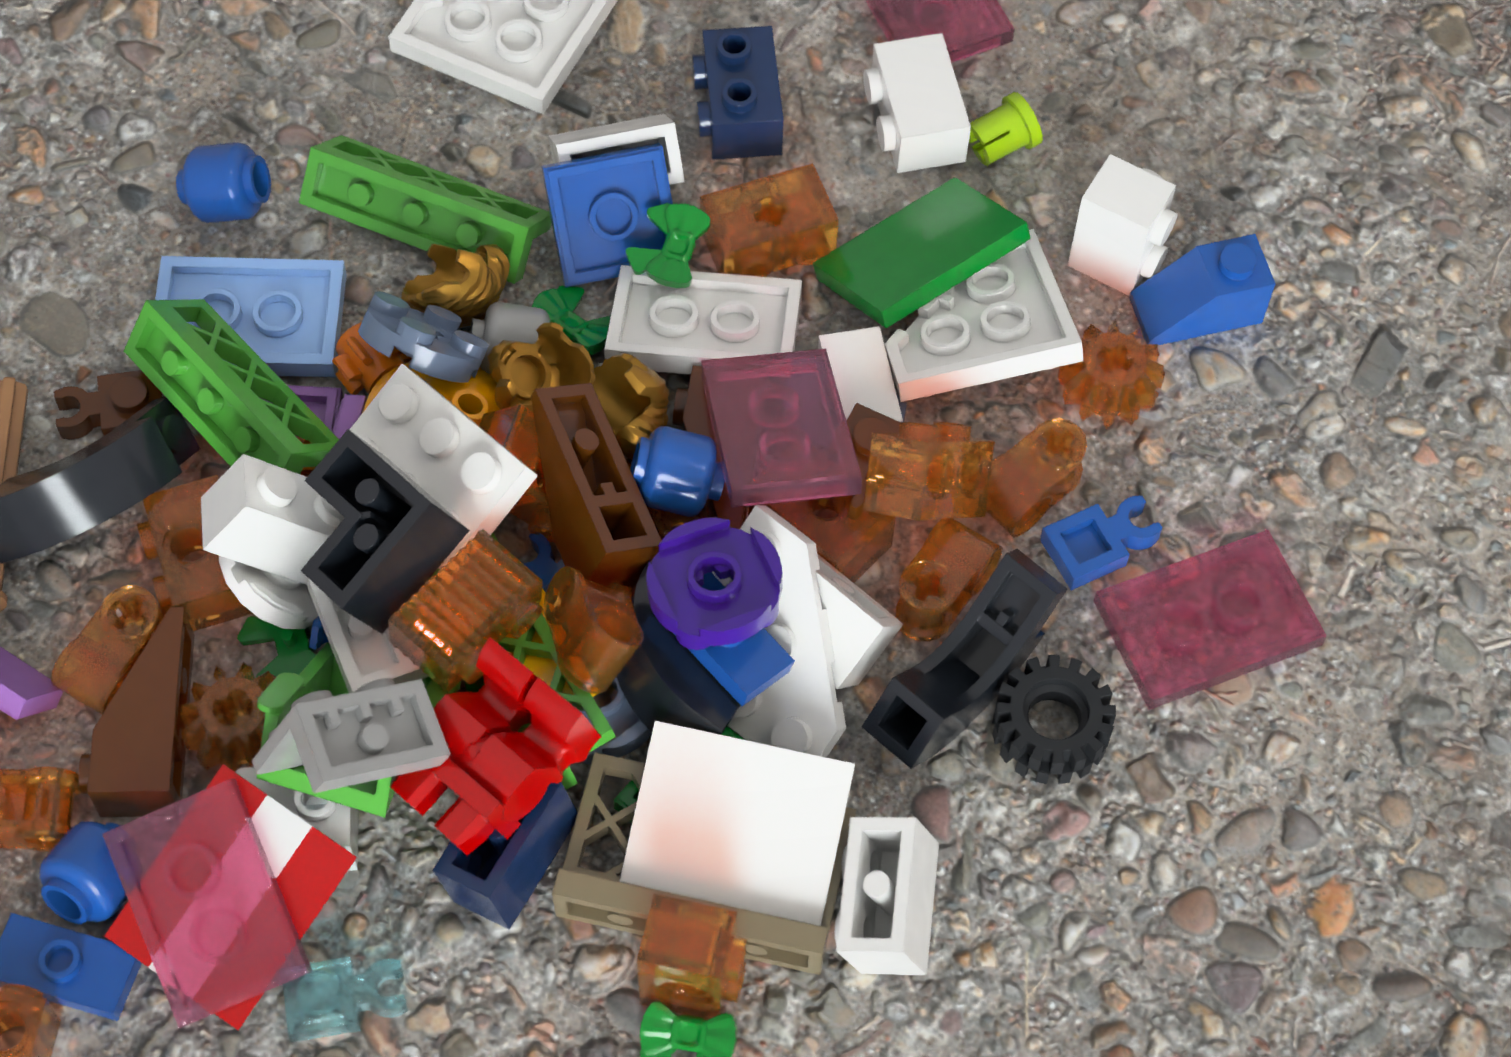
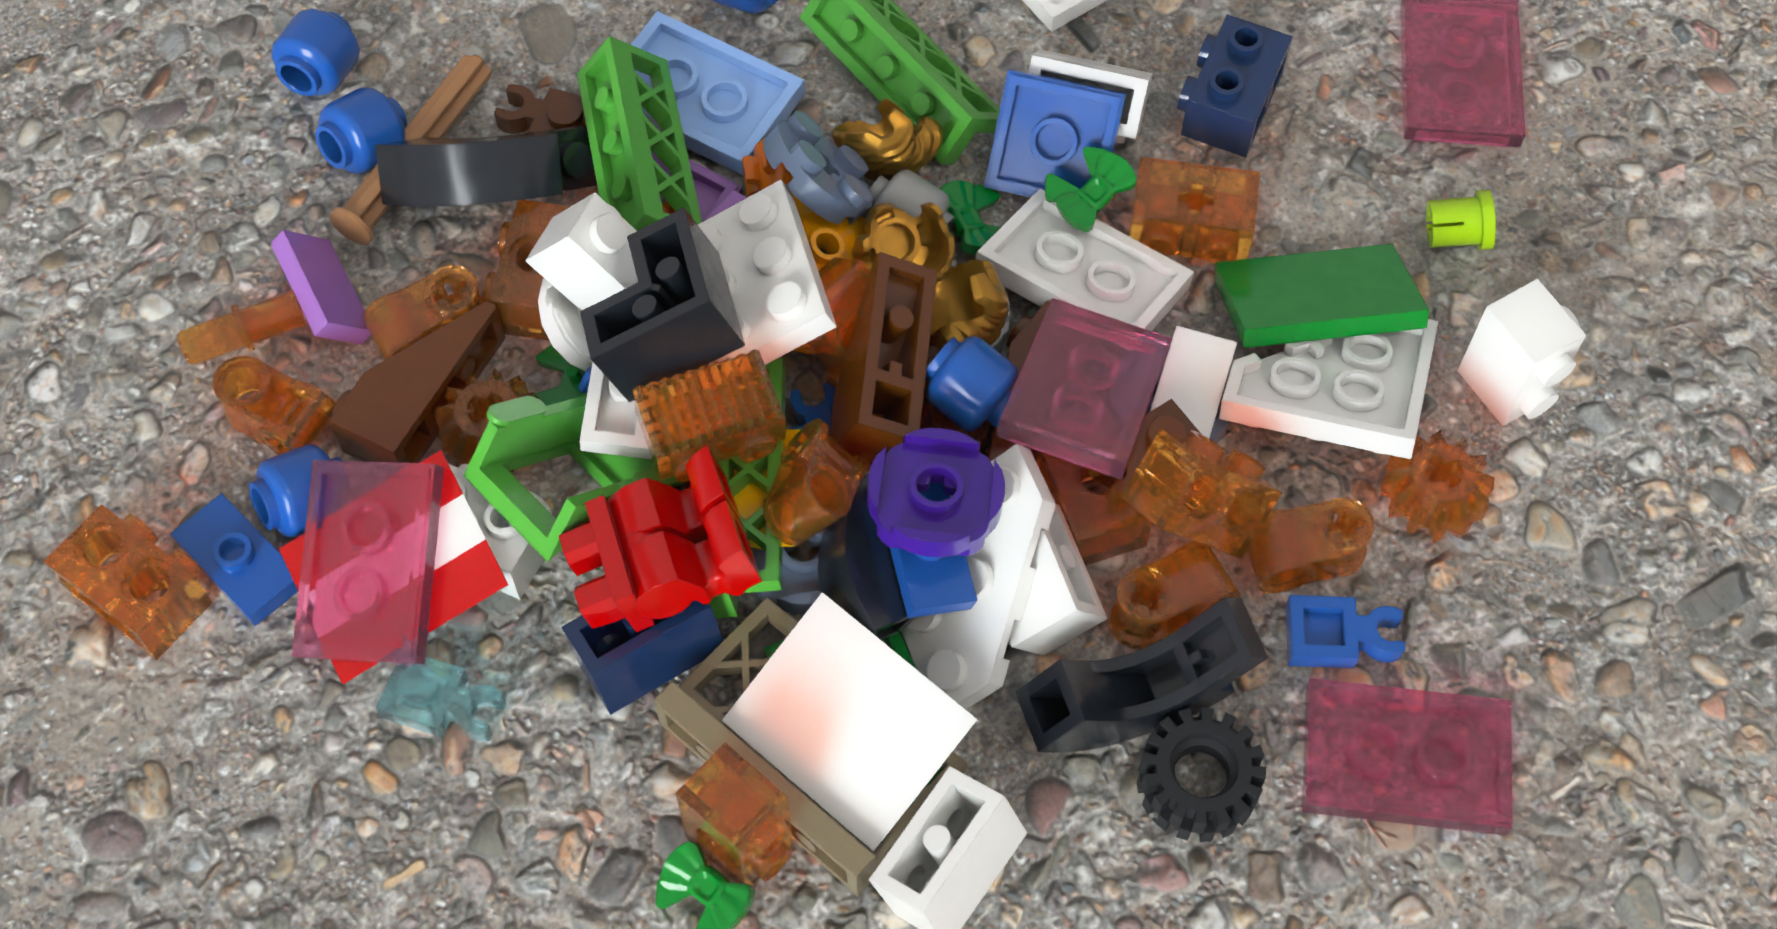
camera: 30 degrees right, 0 degrees up
(357, 735) = (545, 475): light grey bracket -> none
(918, 103) = (1392, 163): white brick -> none
(1205, 292) = (1573, 452): blue slope -> none

